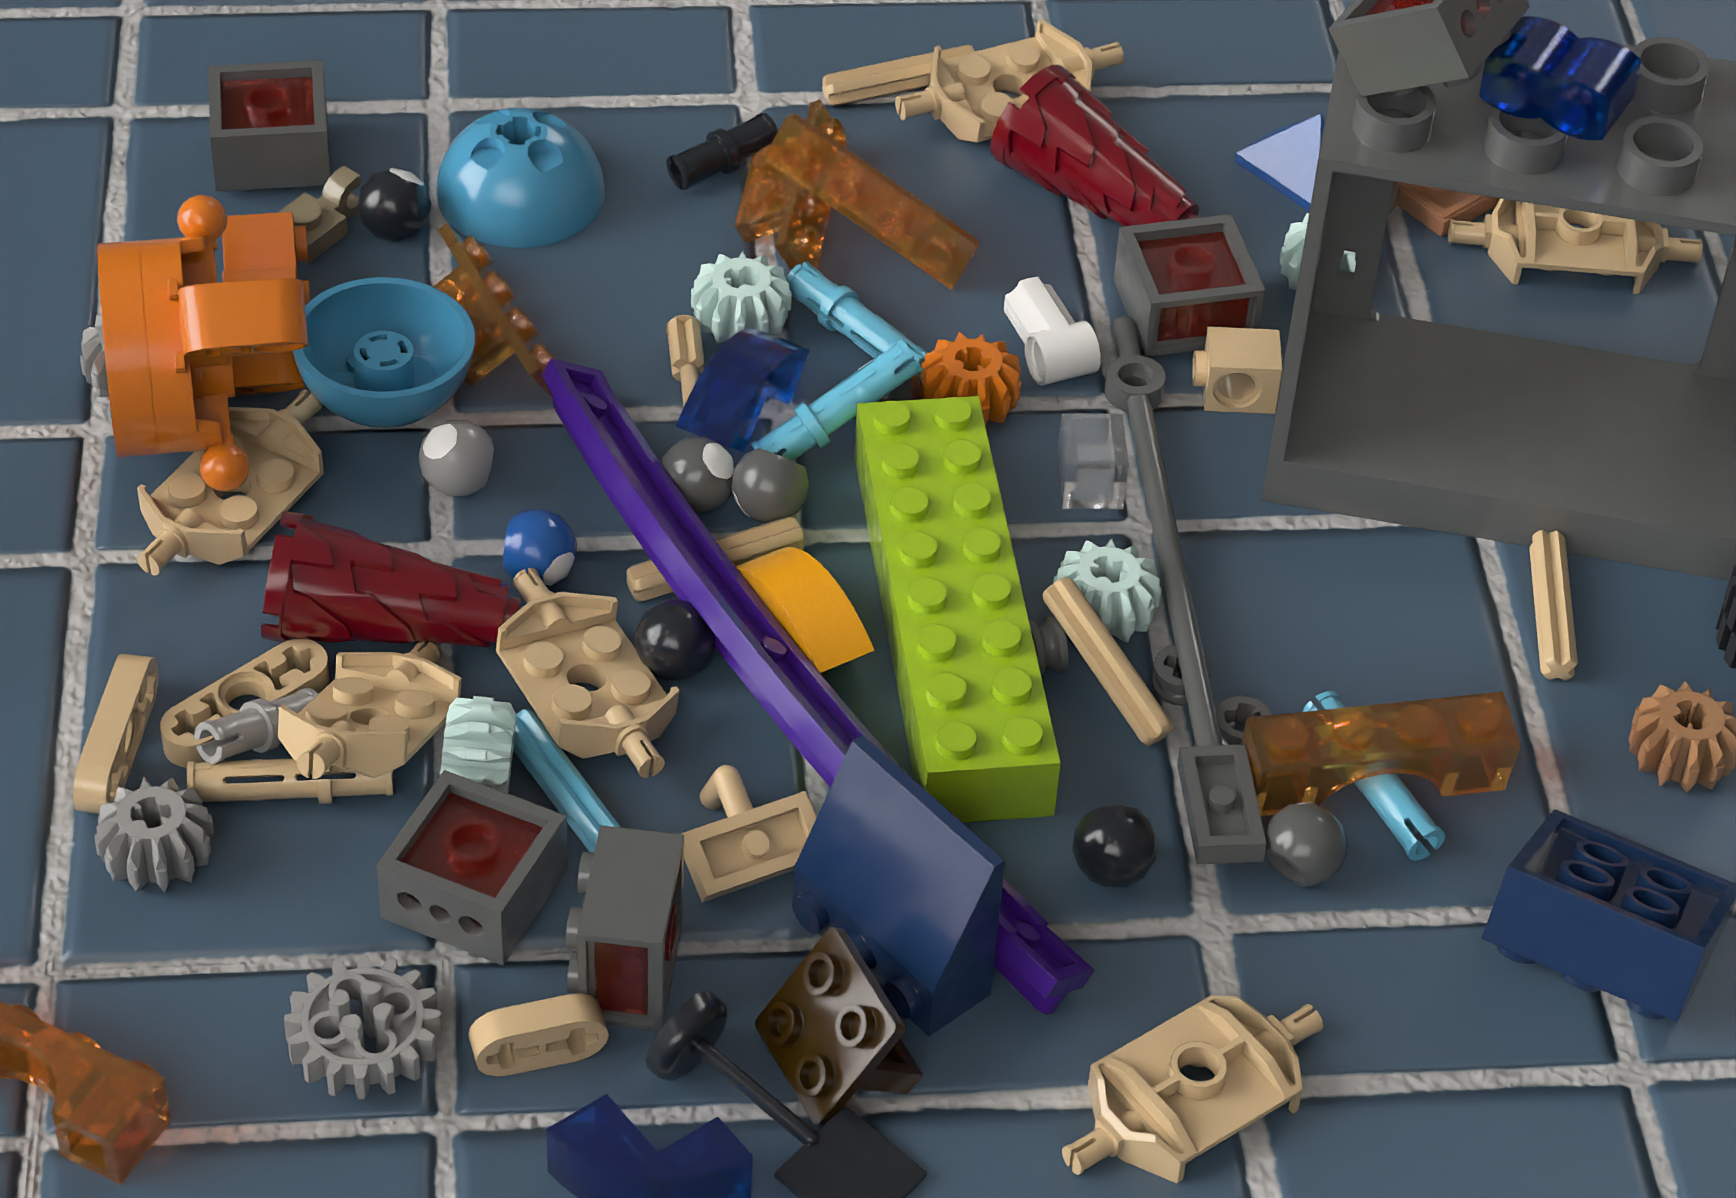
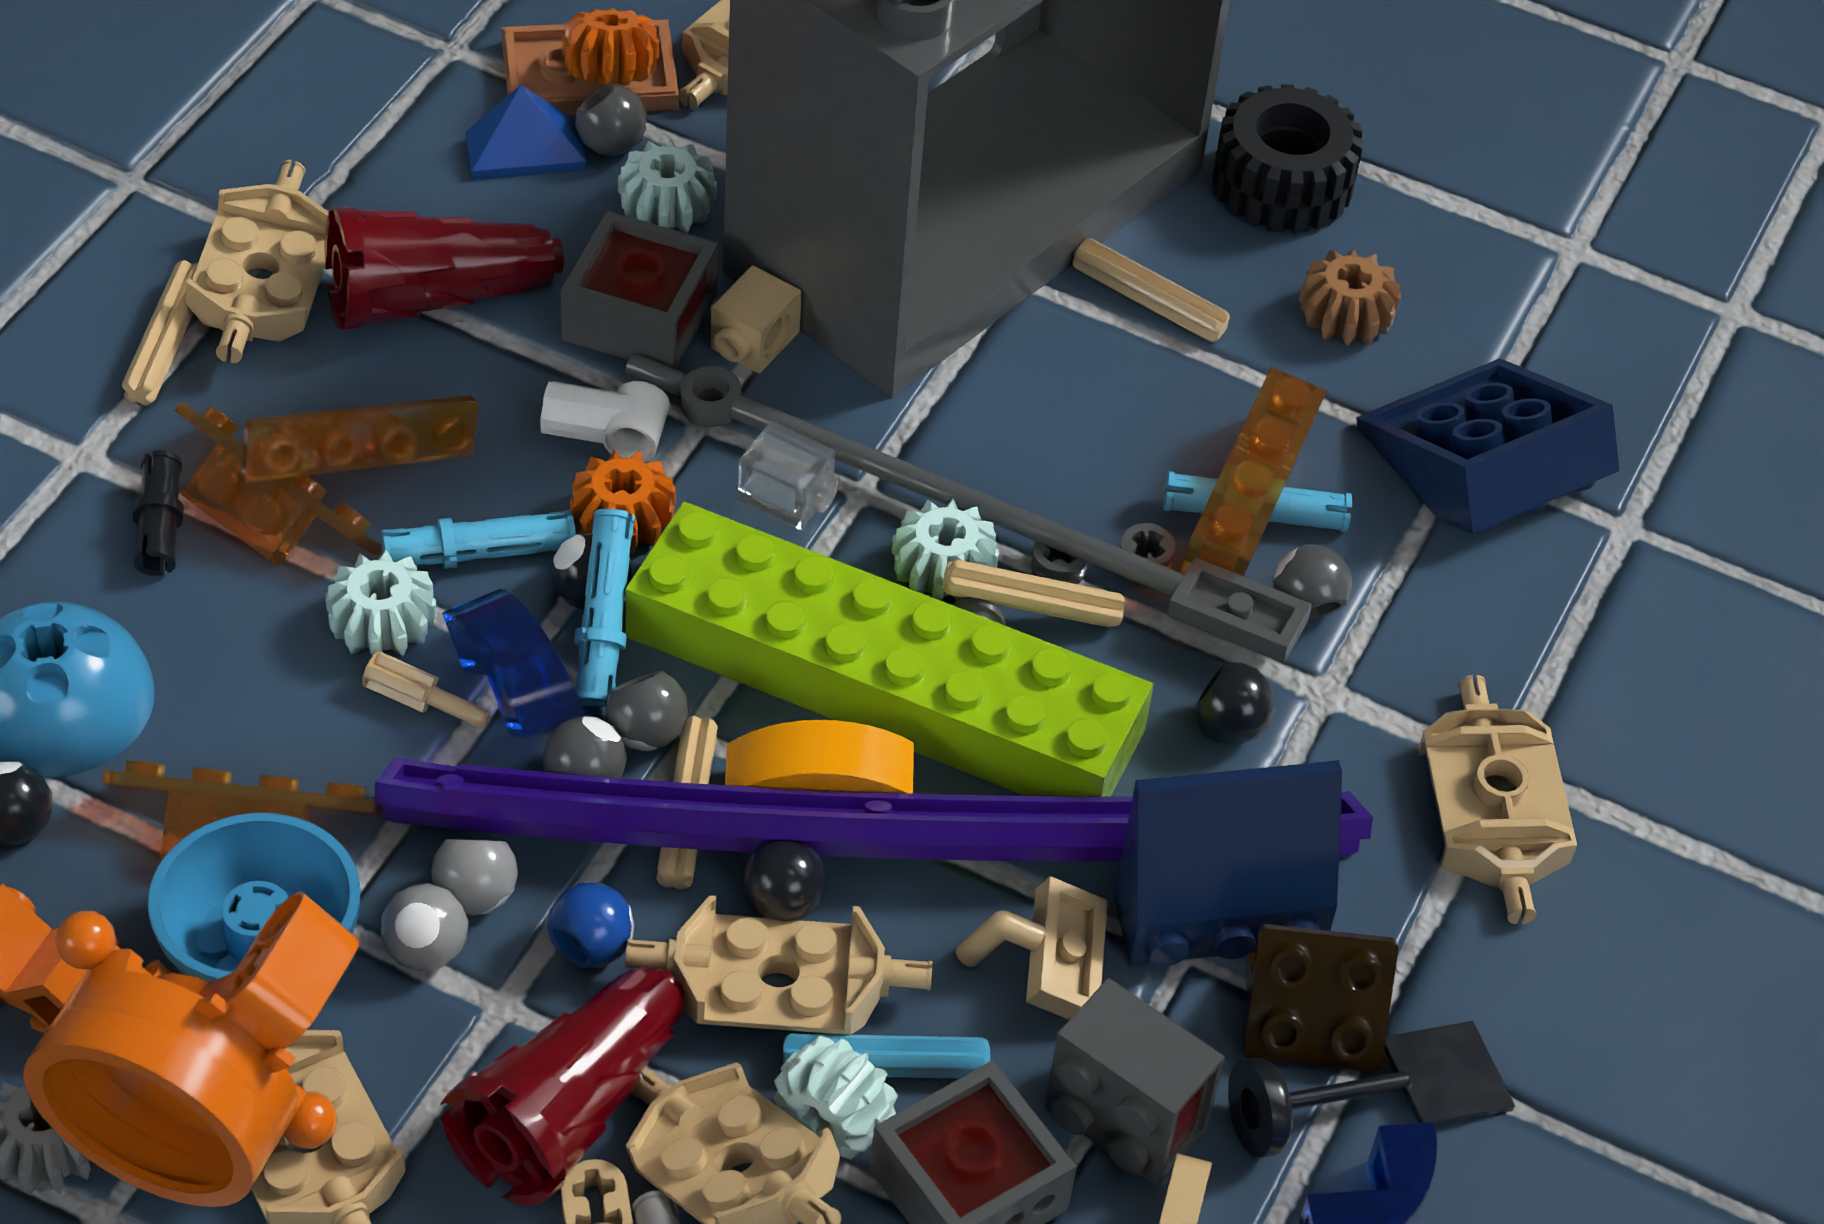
camera: 60 degrees left, 5 degrees up
(529, 462) = (476, 873): none -> light grey piece

